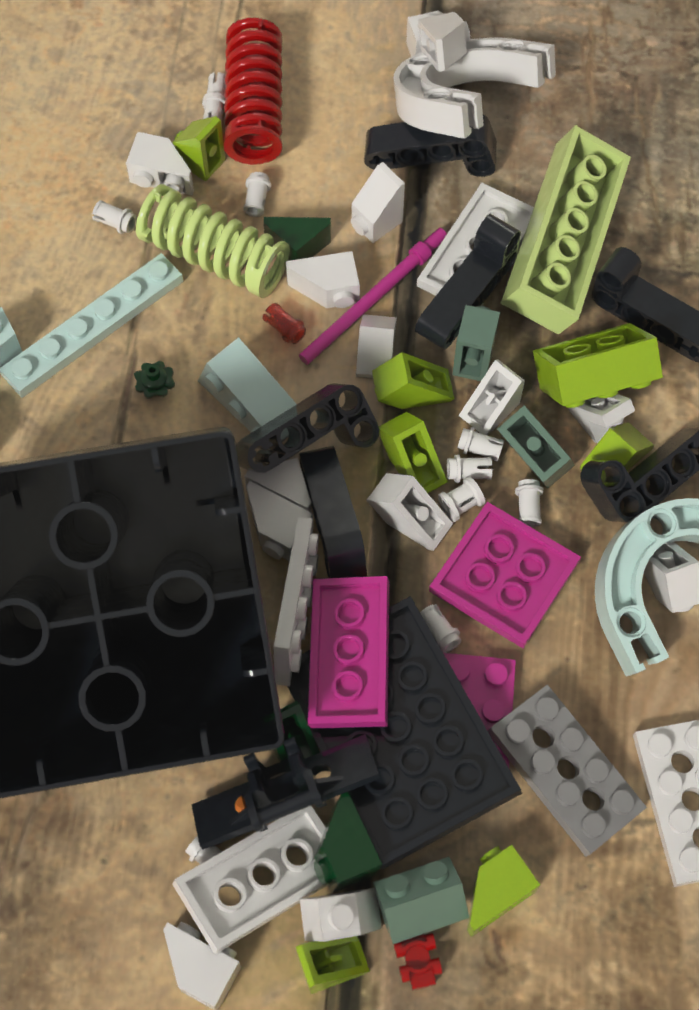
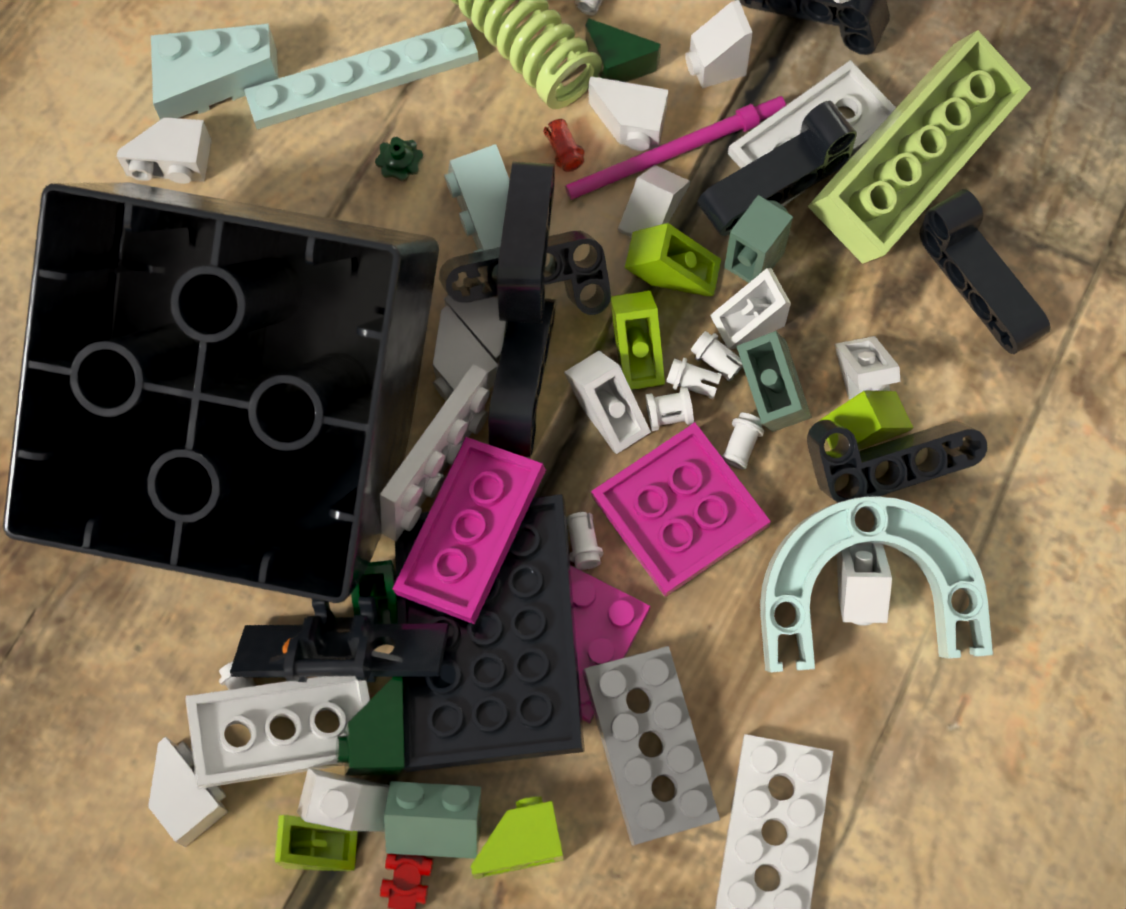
camera: 25 degrees right, 5 degrees up
(300, 405) = (525, 242): none -> black beam
(598, 365) = (884, 315): lime brick -> none

